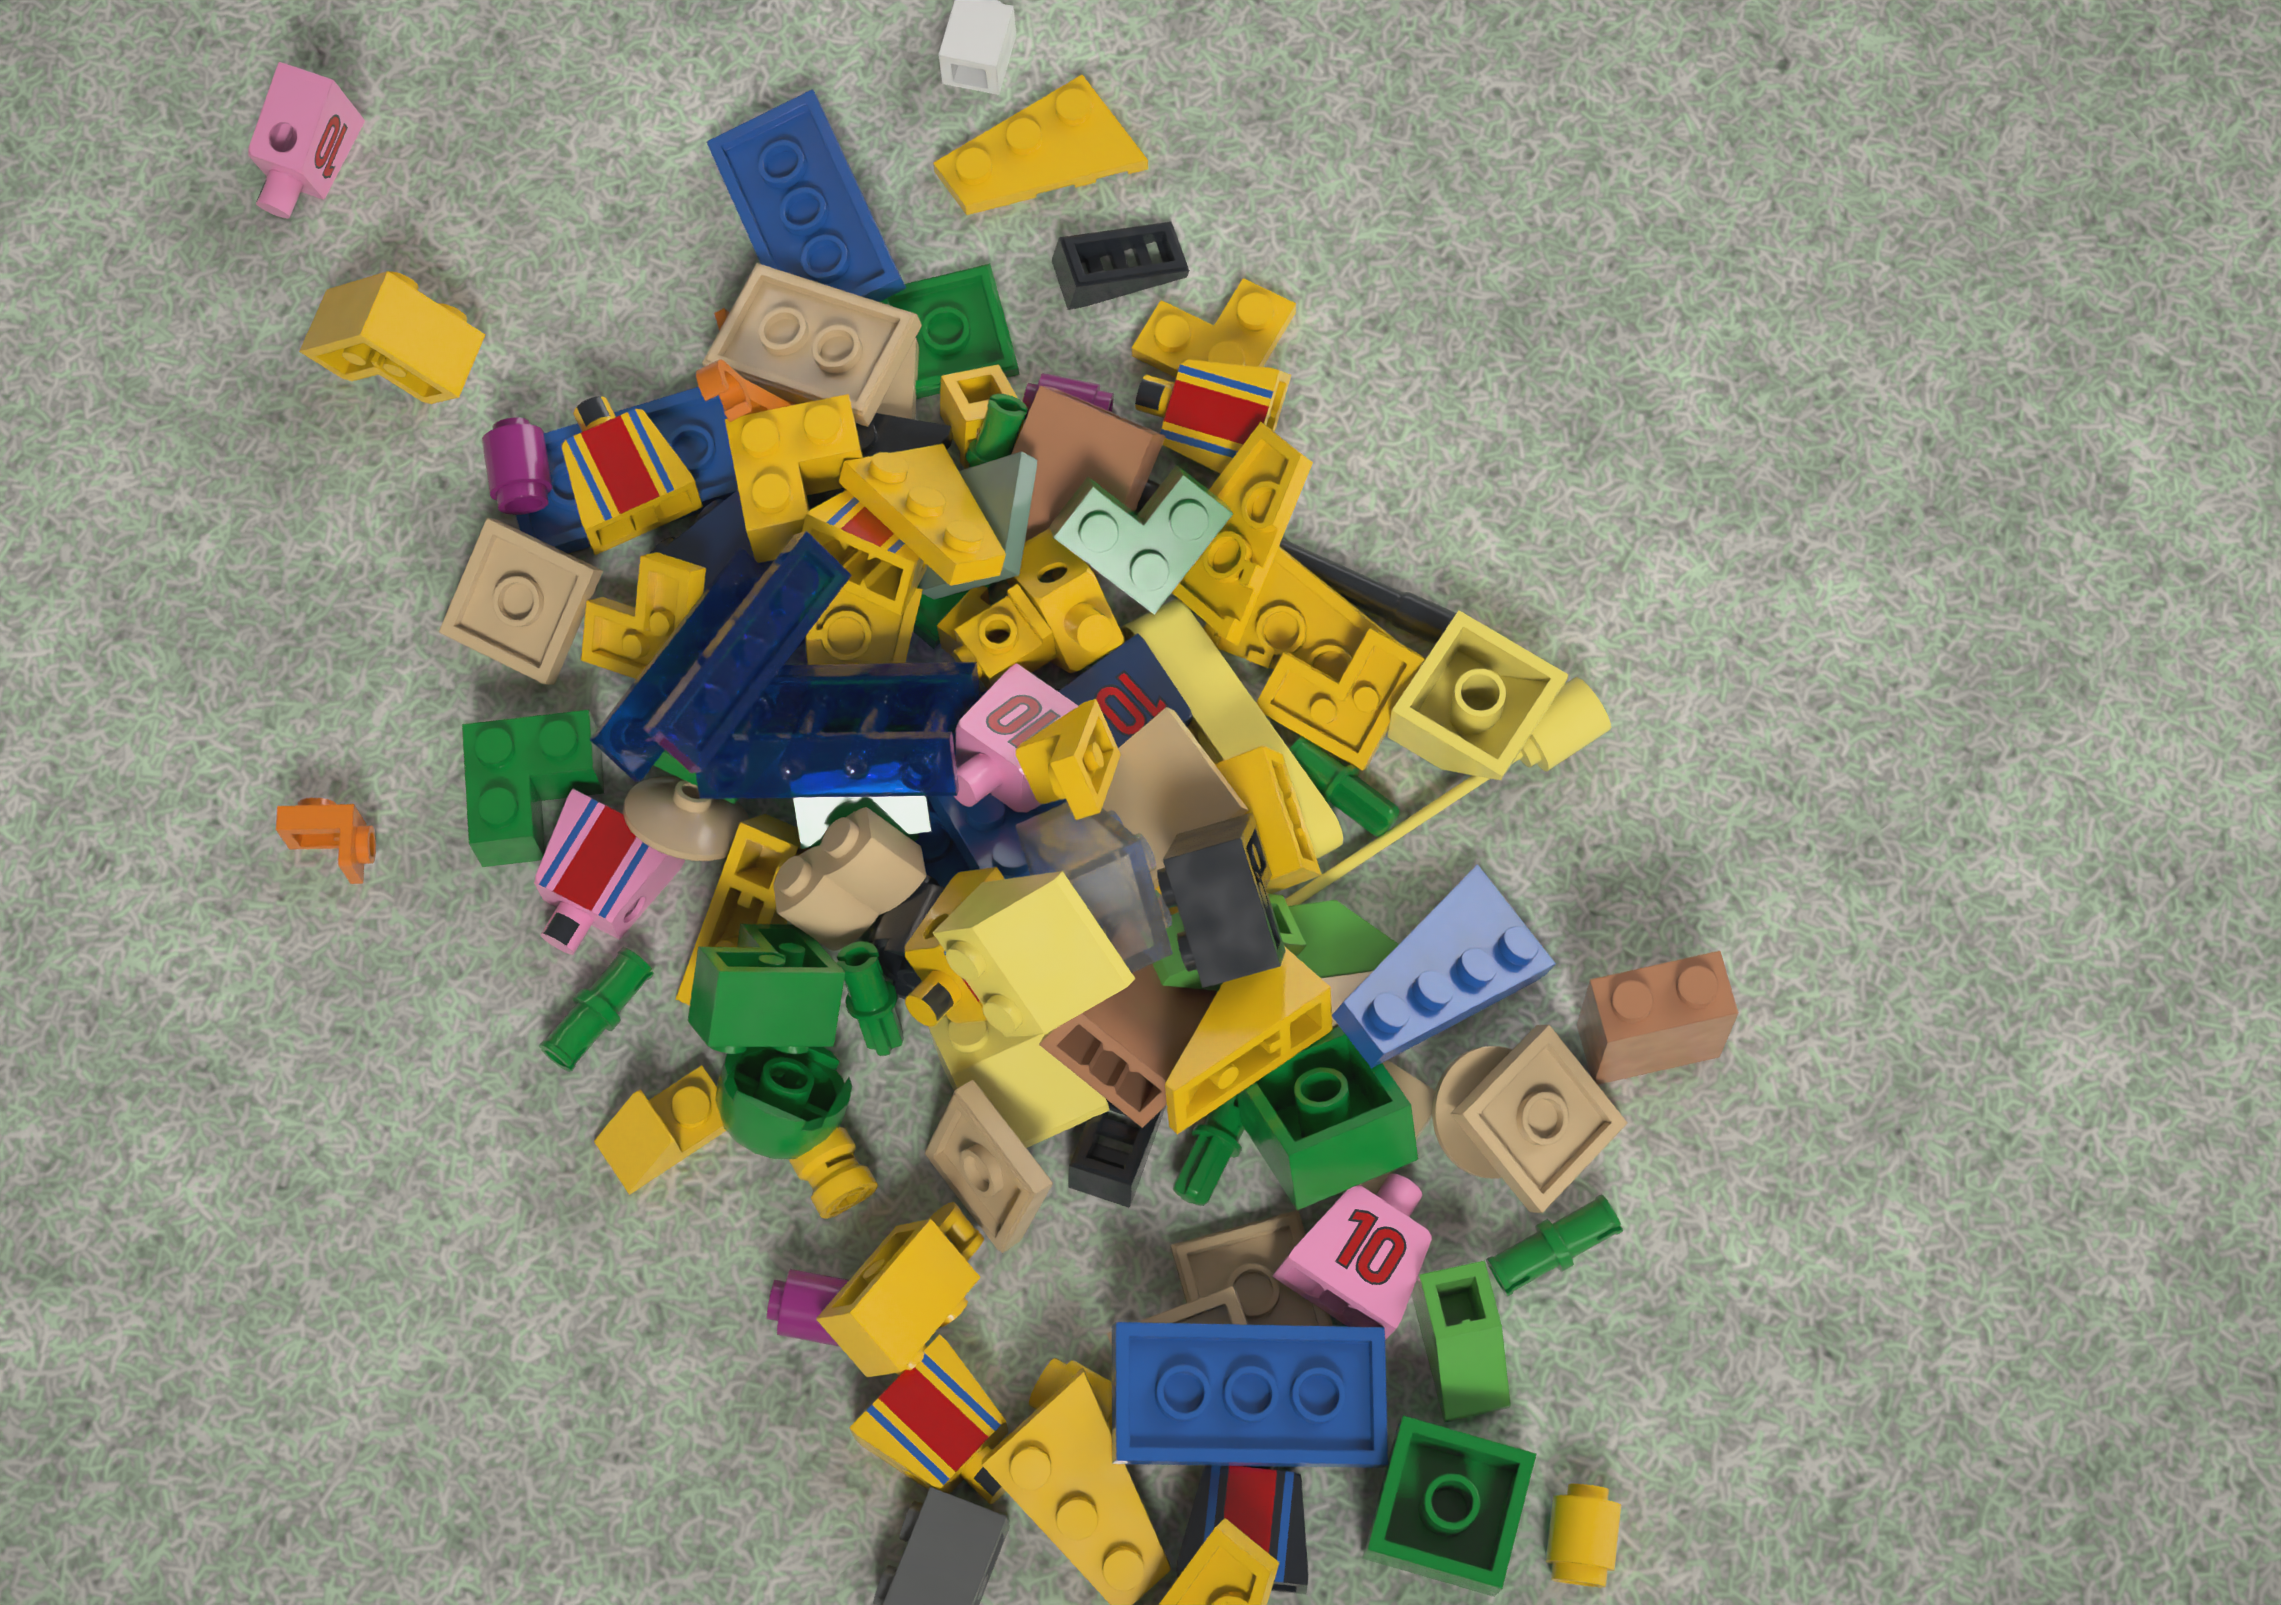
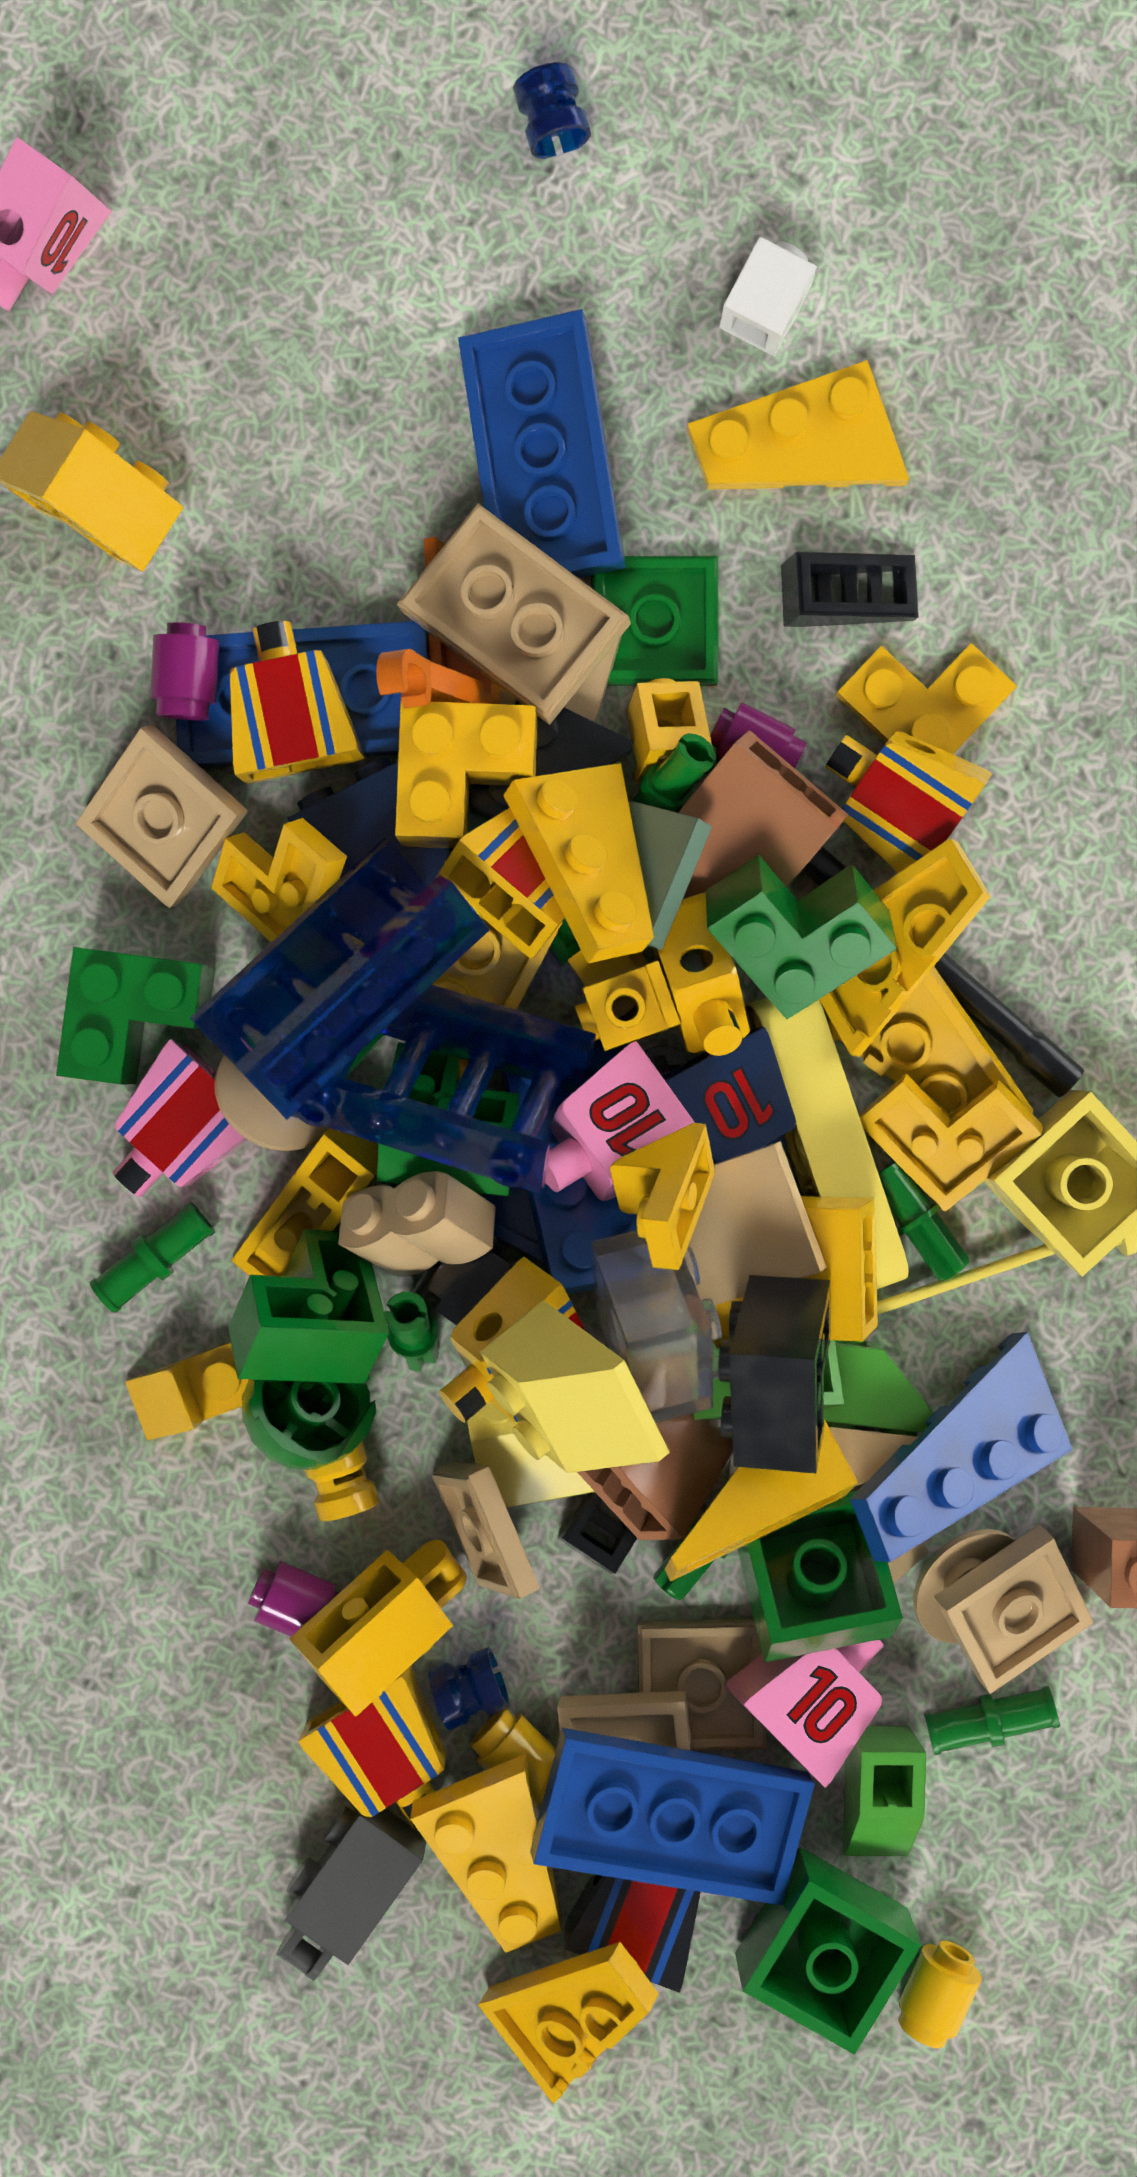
camera: 10 degrees right, 20 degrees up
(1010, 1348) = (468, 1688): none -> clear blue wheel

